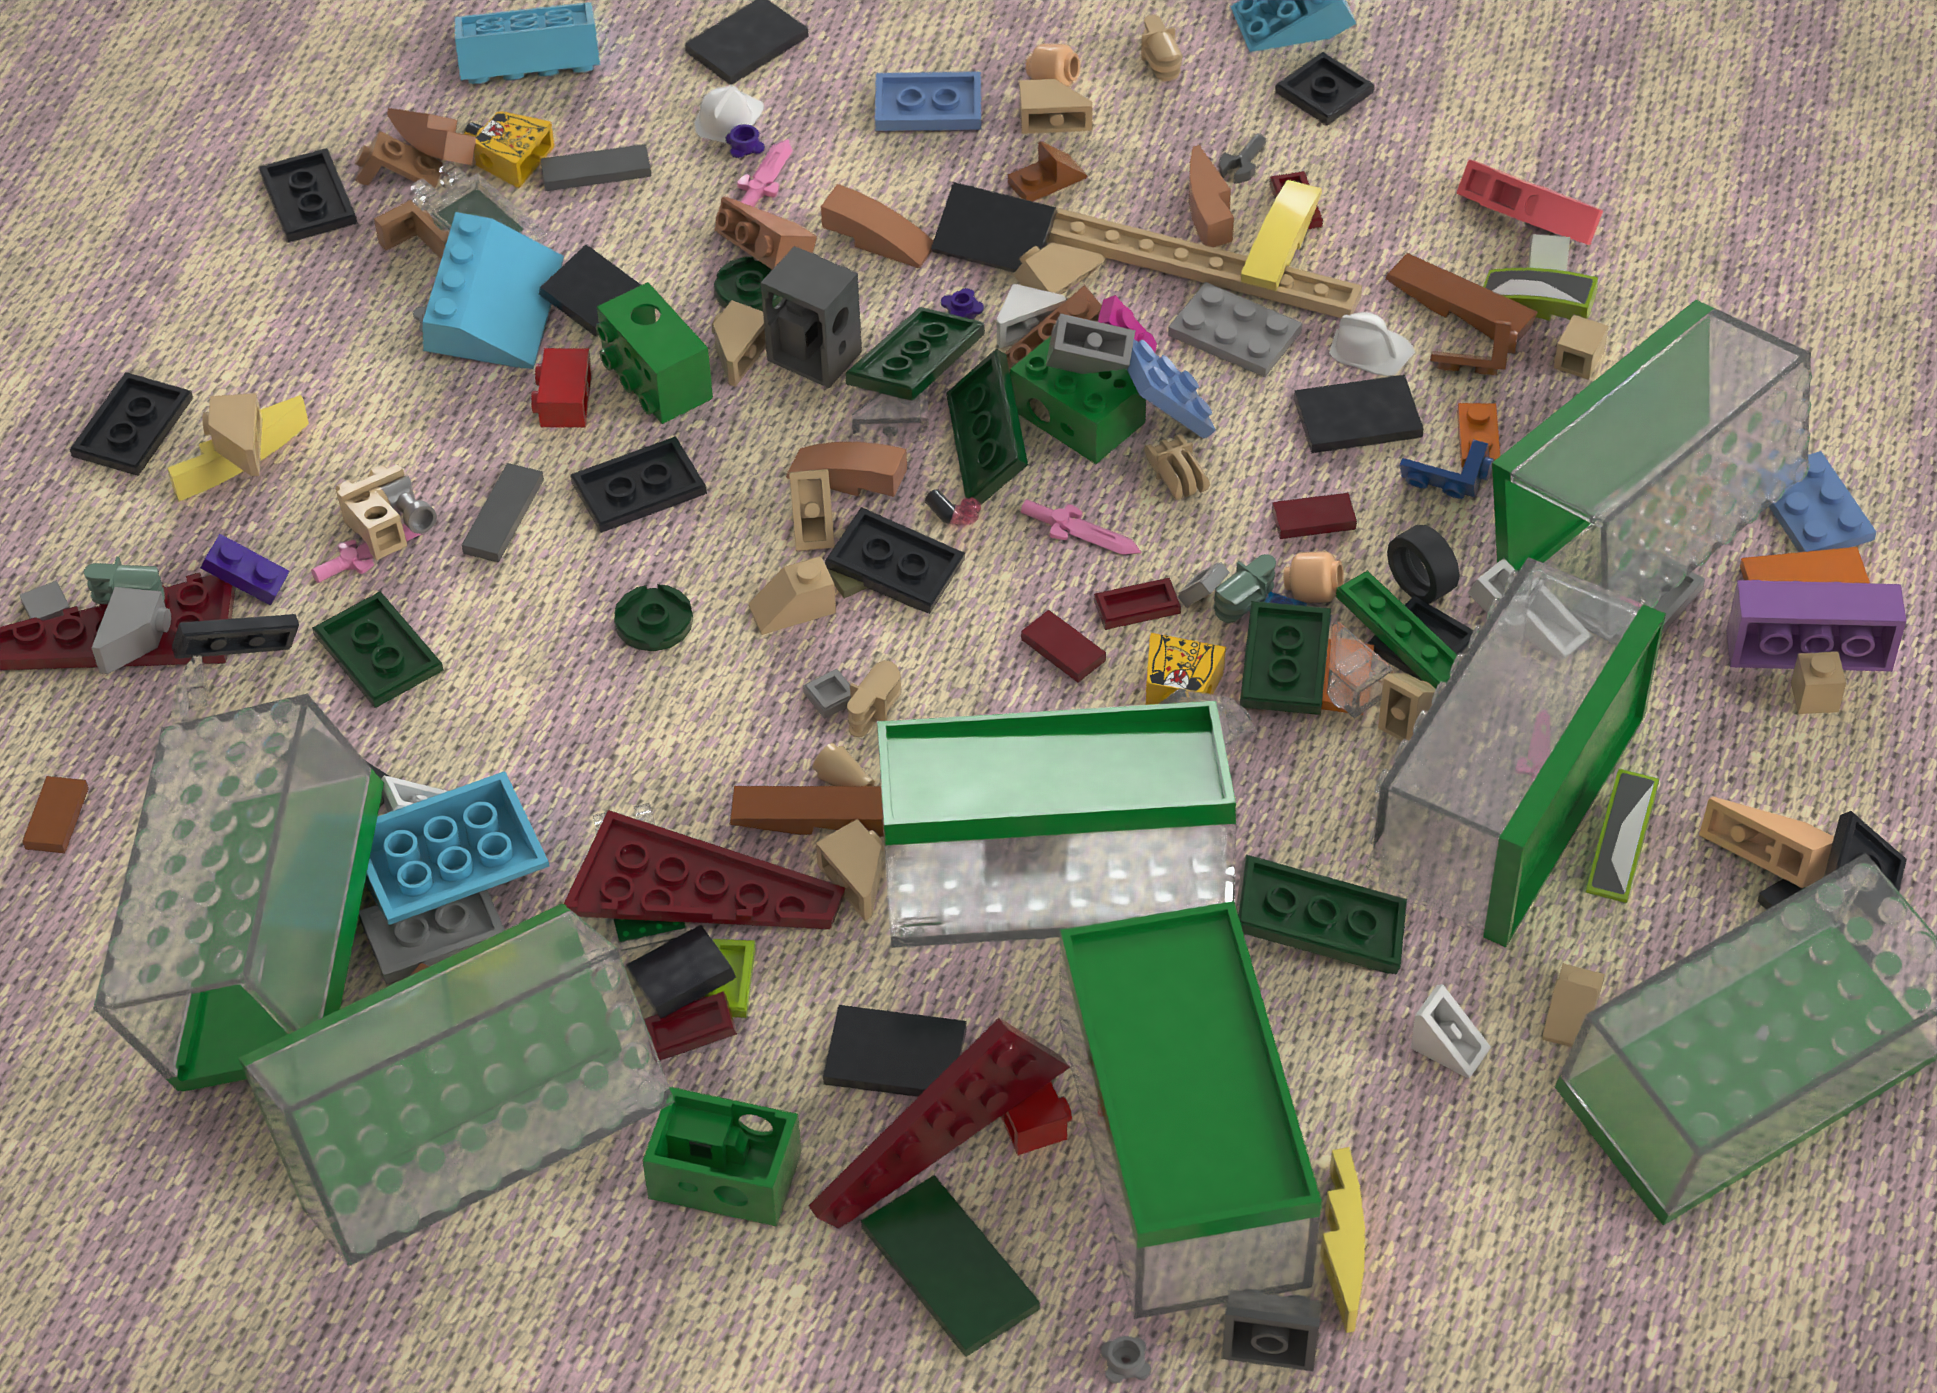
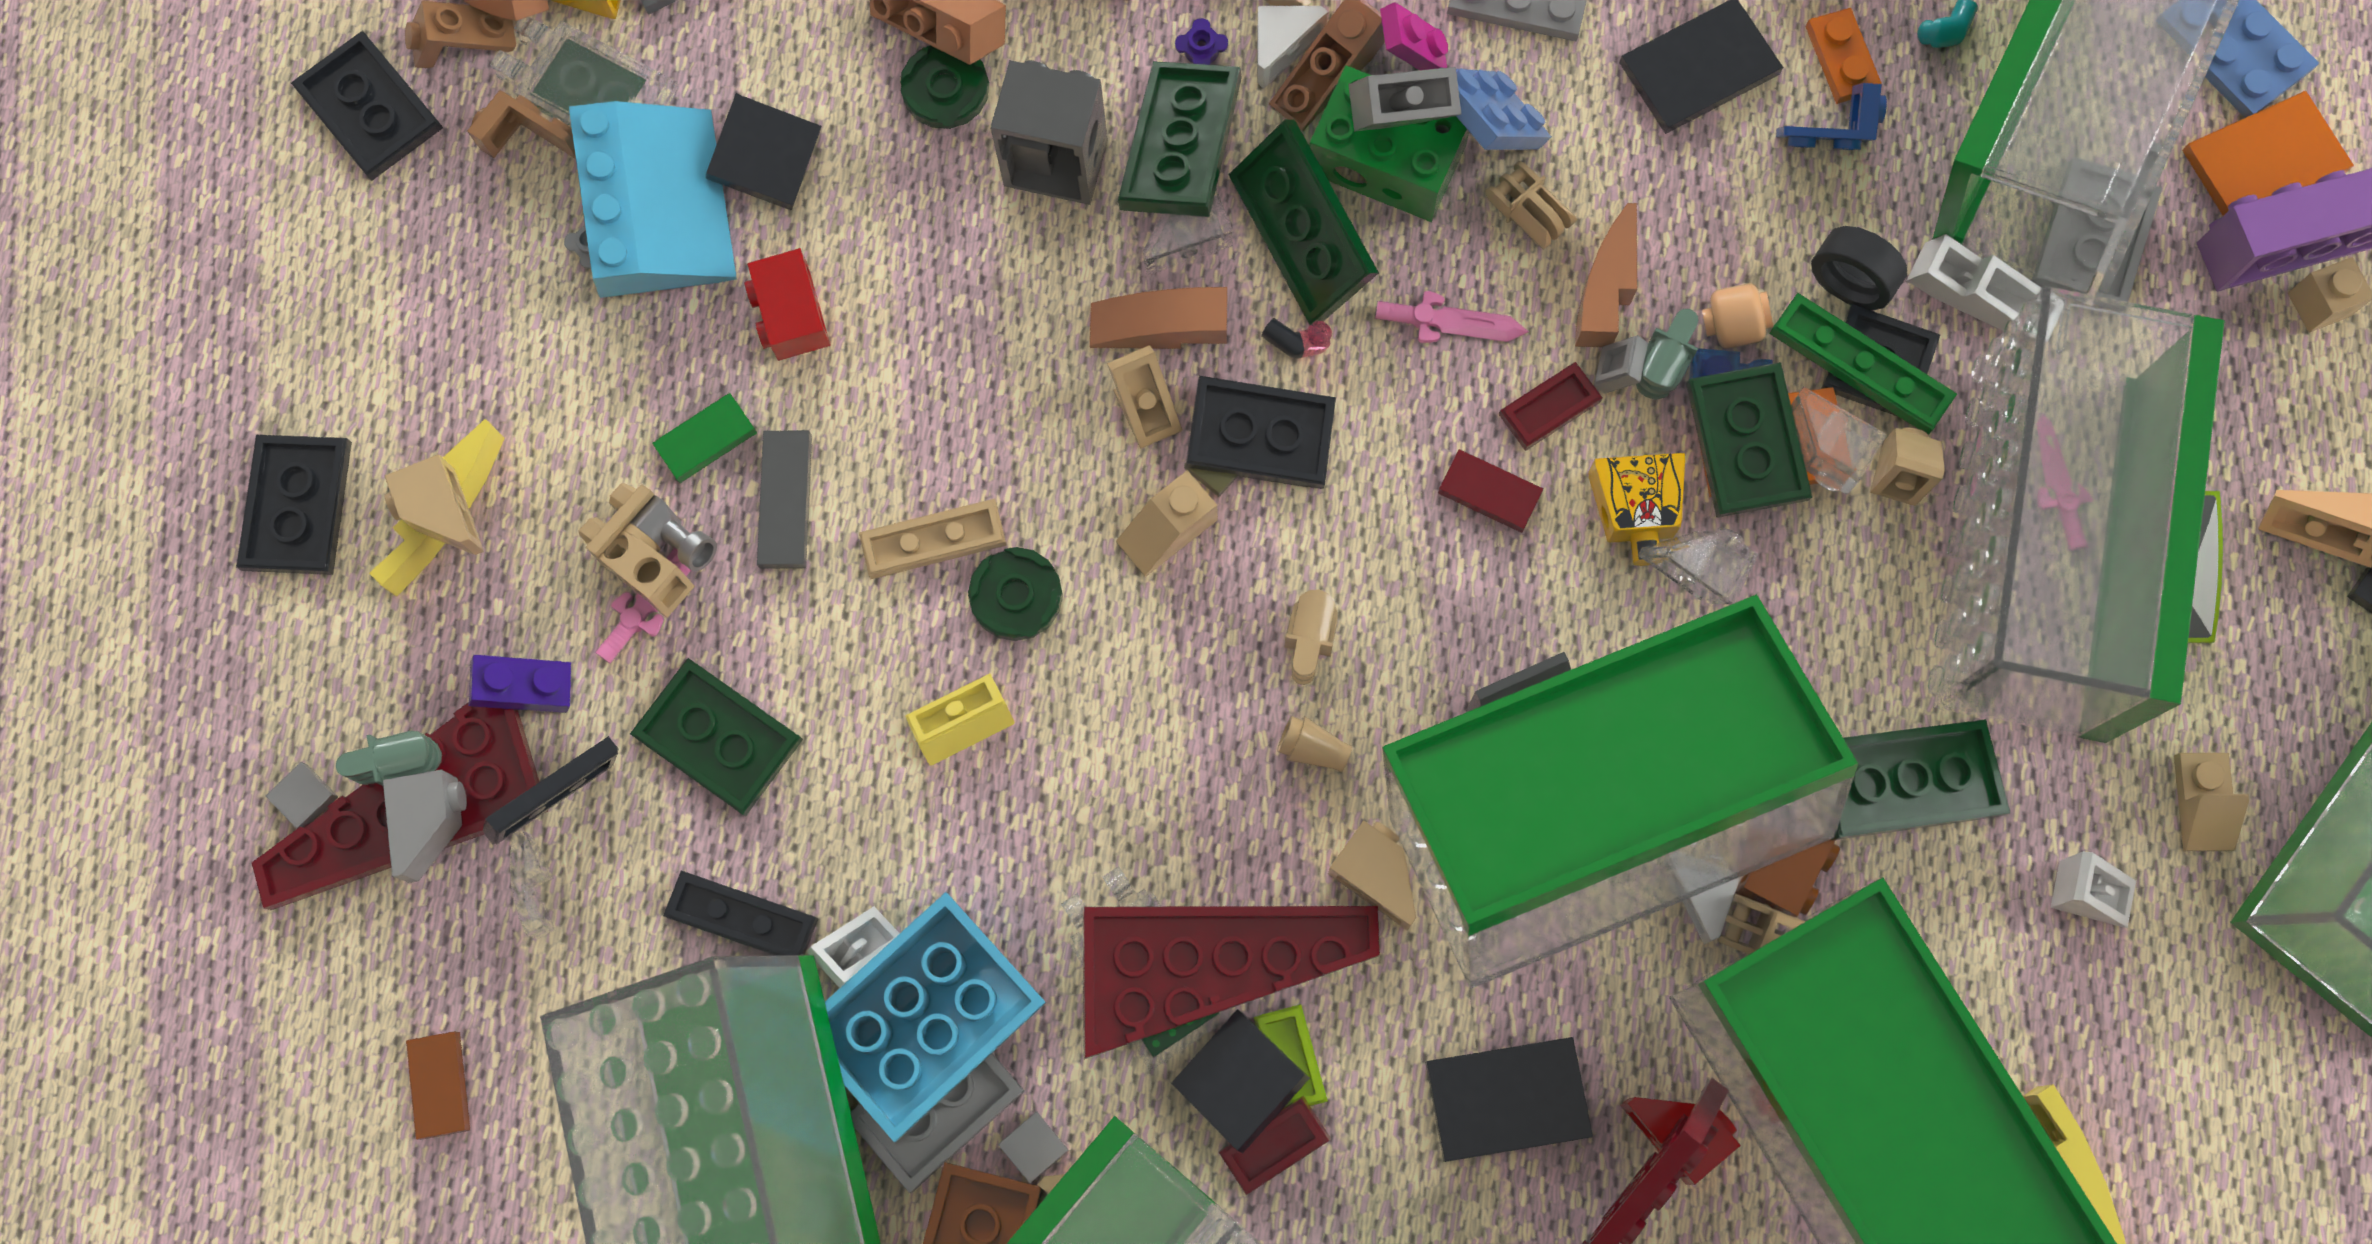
camera: 15 degrees left, 25 degrees up
(460, 458) = (704, 438): none -> green tile
(571, 688) = (959, 719): none -> light yellow slope
(605, 566) = (932, 538): none -> tan tile
(638, 484) = (925, 411): black tile -> none
(654, 358) = (882, 238): green piece -> none
(738, 339) = (964, 172): tan slope -> none
(805, 807) = (1297, 808): dark orange slope -> none
(828, 693) = (1255, 637): light grey tile -> none
(1217, 528) = (1609, 283): none -> nougat slope
(1314, 515) = (1702, 223): dark red tile -> none

